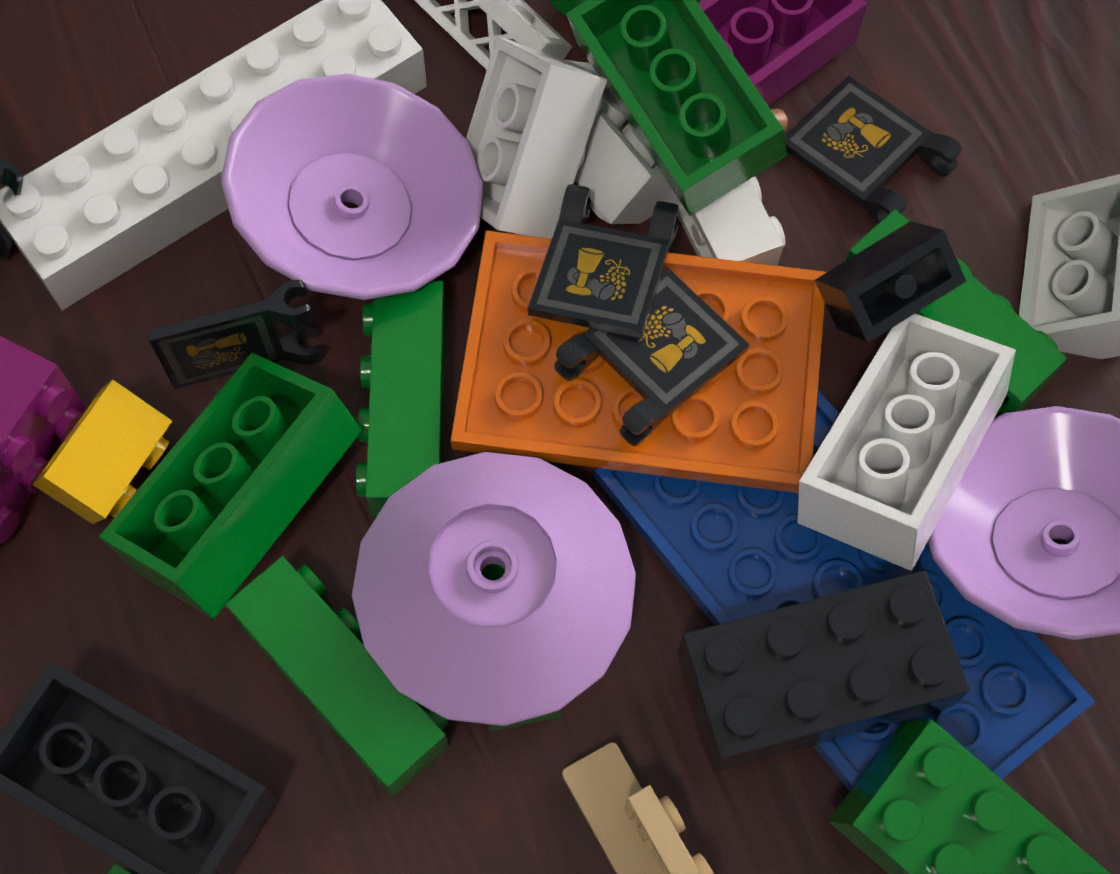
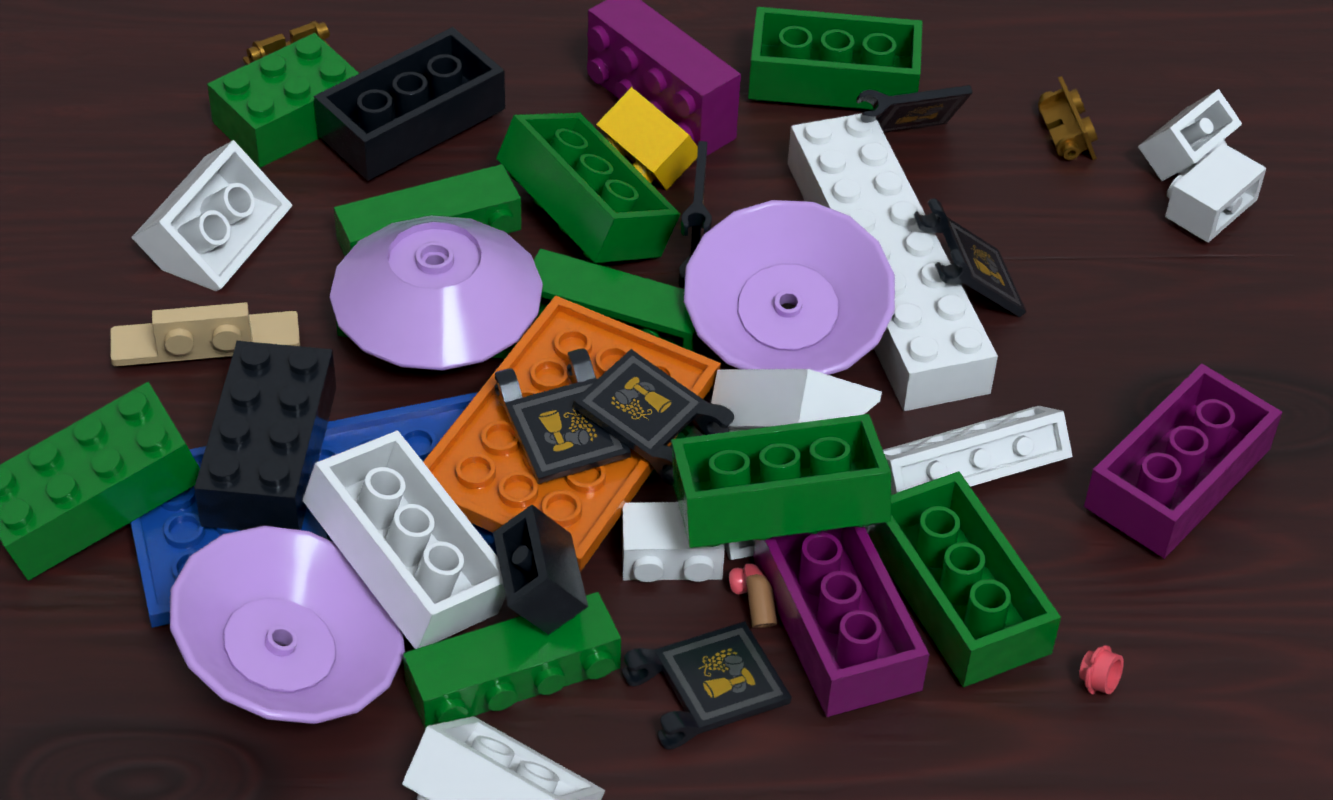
camera: 110 degrees right, 20 degrees down
(181, 53) = (974, 260): none -> black flag

